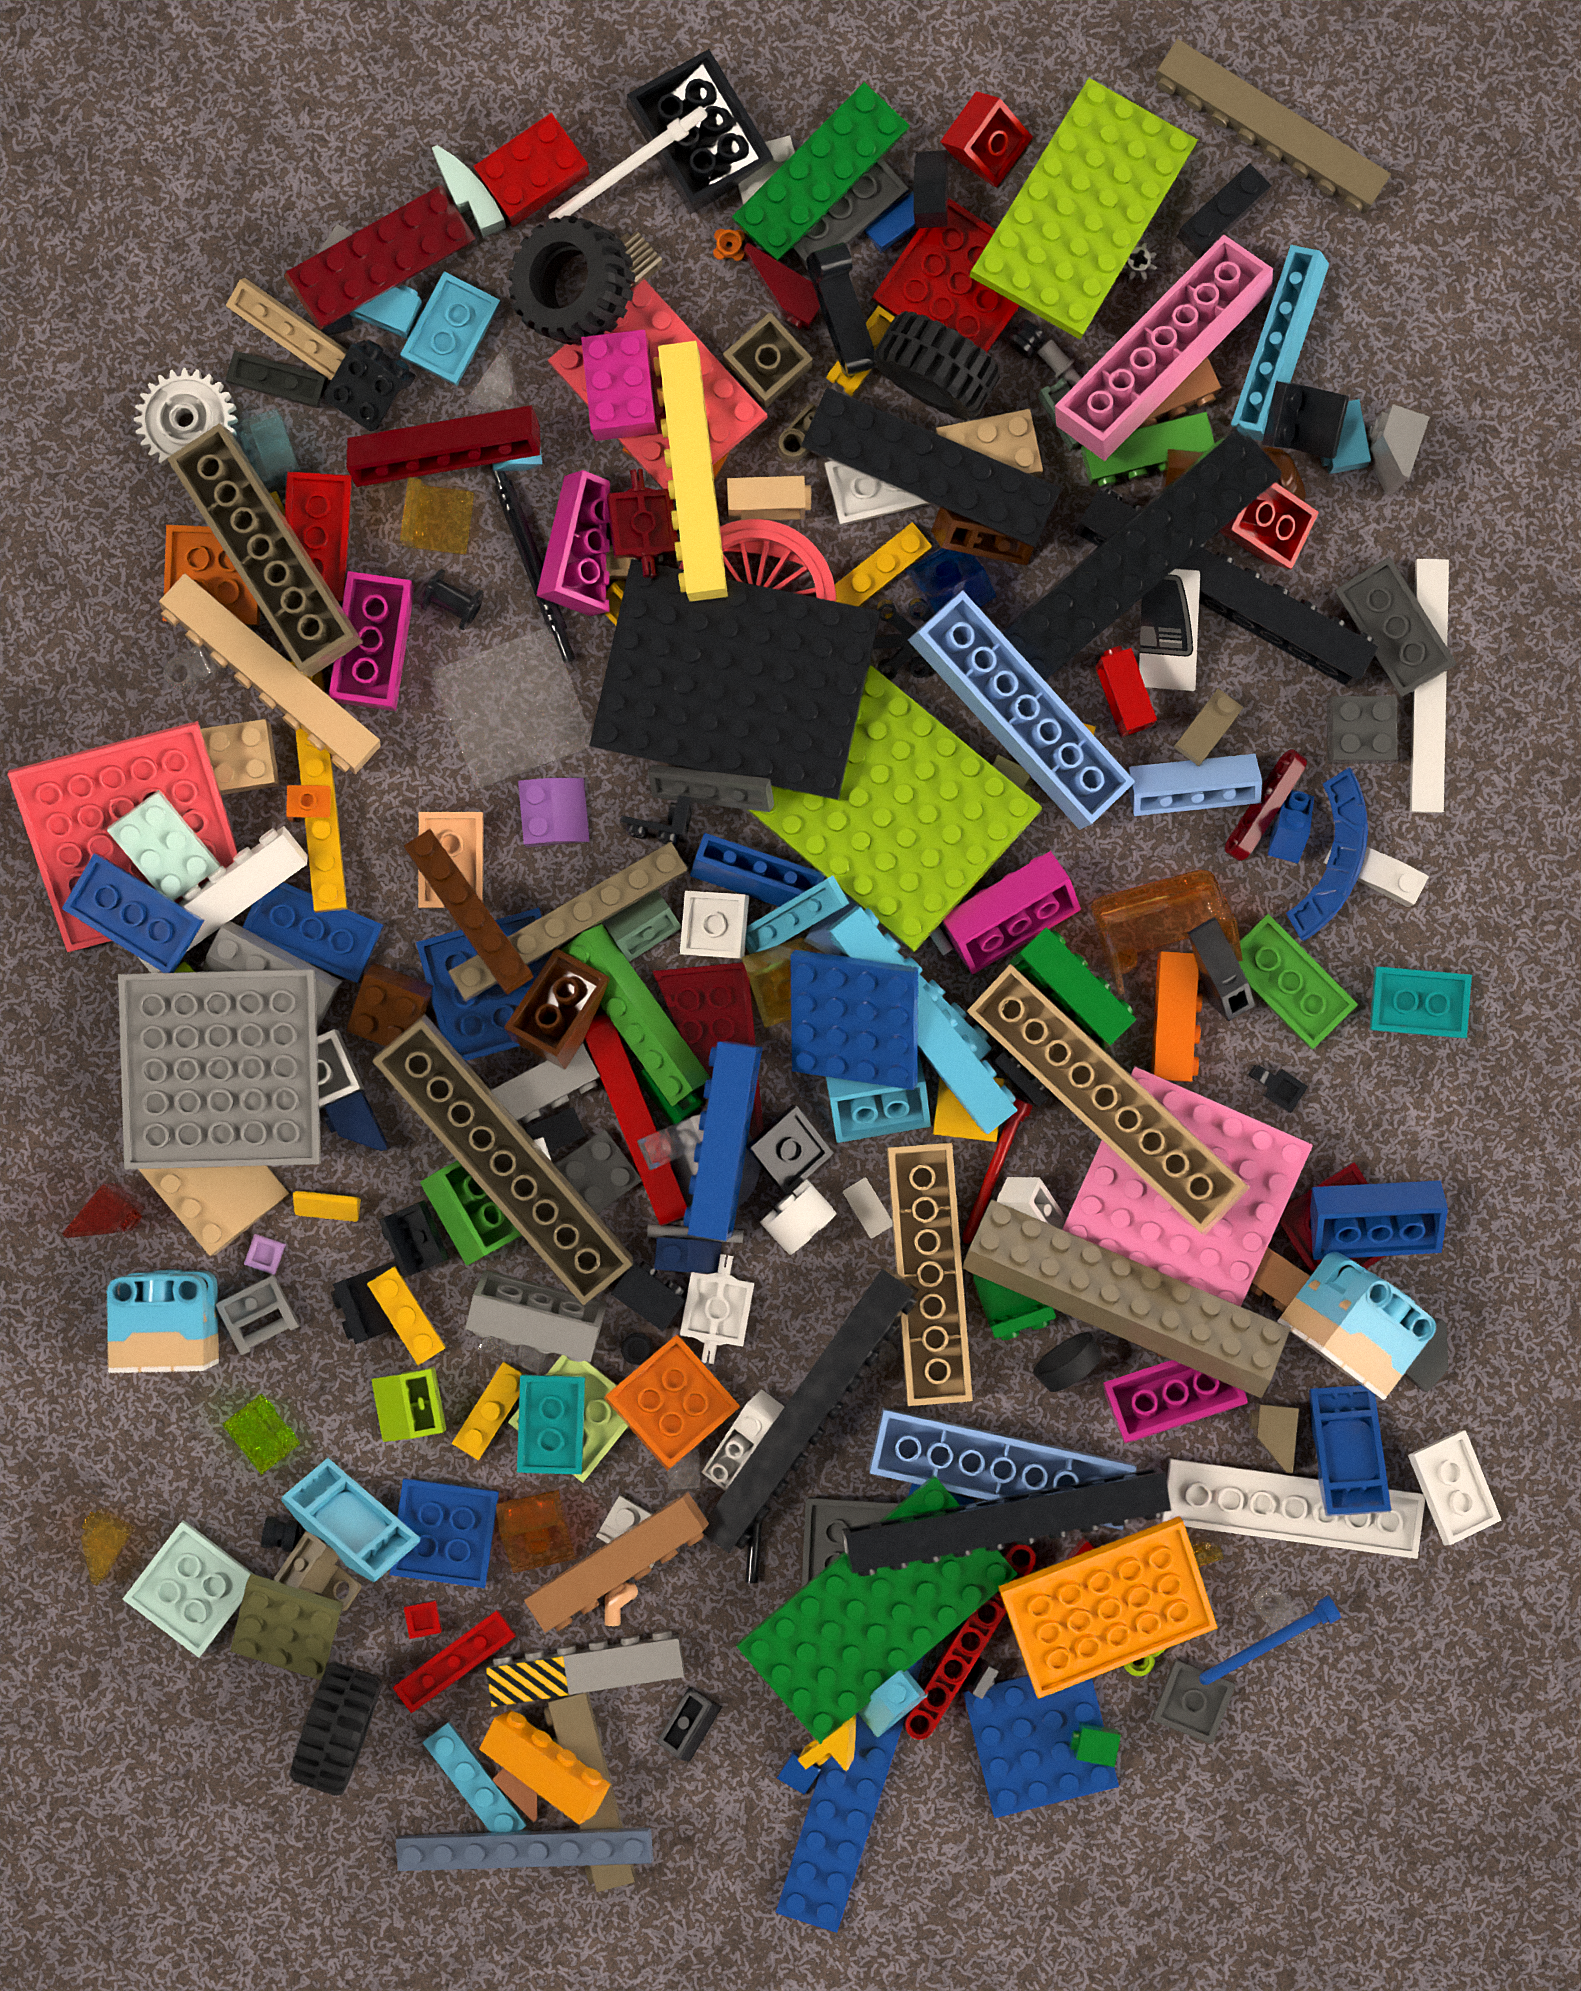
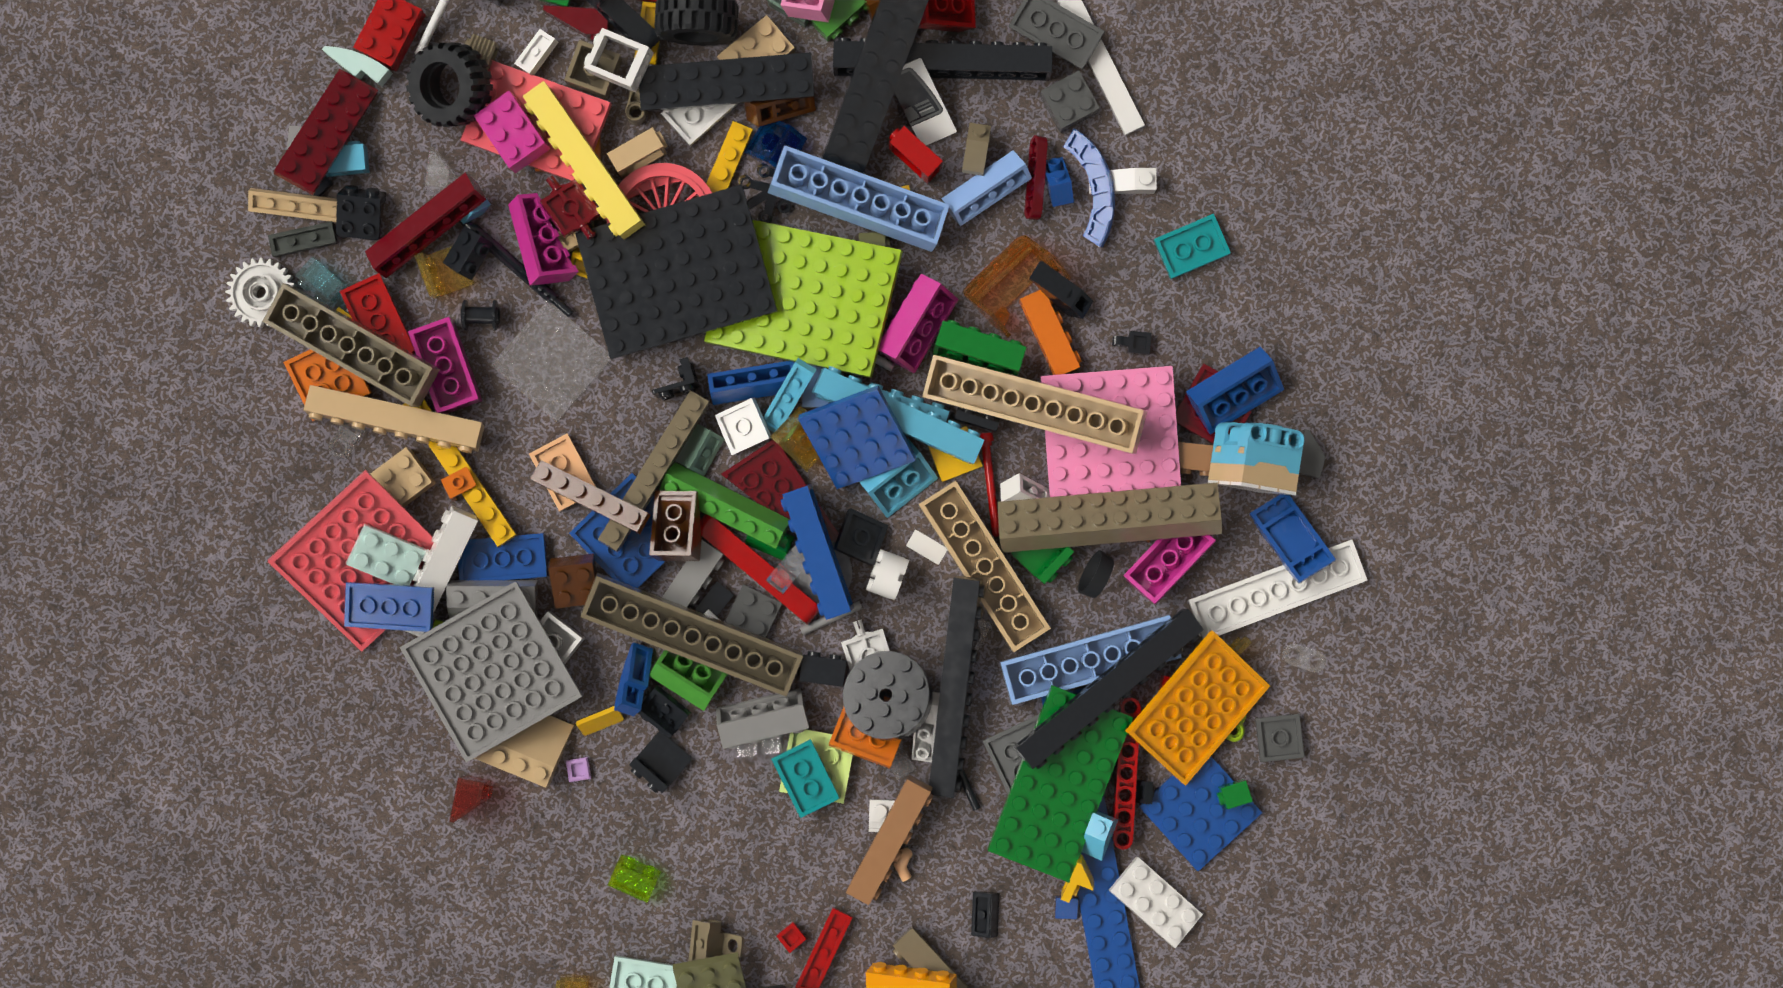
camera: 20 degrees left, 0 degrees up
(162, 1321) = (538, 841): medium azure piece -> none
(253, 1304) = (588, 802): light grey plate -> none
(280, 1534) = (678, 932): black wheel -> none
(349, 1521) = (715, 901): medium azure slope -> none
(356, 1121) = (589, 659): dark blue slope -> none
(397, 1177) = (633, 680): none -> blue slope
(406, 1315) = (683, 760): yellow plate -> none
(409, 1404) = (713, 813): lime slope -> none
(450, 328) = (391, 152): medium azure plate -> none
(453, 1532) = (776, 878): blue plate -> none
(479, 511) = (468, 253): none -> black bracket
(489, 1411) = (764, 791): yellow plate -> none
(535, 1531) = (830, 848): clear orange slope -> none
(553, 811) = (609, 410): medium lavender slope -> none
(586, 1669) = (904, 915): light grey brick -> none
(636, 1348) = (833, 706): black plate -> none
(687, 1255) = (833, 633): dark blue slope -> none
(691, 1351) = (865, 696): none -> piece
(706, 299) = (536, 52): none -> white plate
(711, 788) = (697, 344): dark grey plate -> none
(725, 236) = (533, 6): orange plate -> none
(823, 391) = (637, 68): none -> white window
(918, 1828) = (1155, 902): none -> white plate
(1276, 1431) = (1242, 549): dark tan slope -> none
(1292, 982) = (1109, 275): bright green plate -> none
(1323, 1612) = (1329, 642): blue piece -> none
(1454, 1487) = (1367, 526): white plate -> none

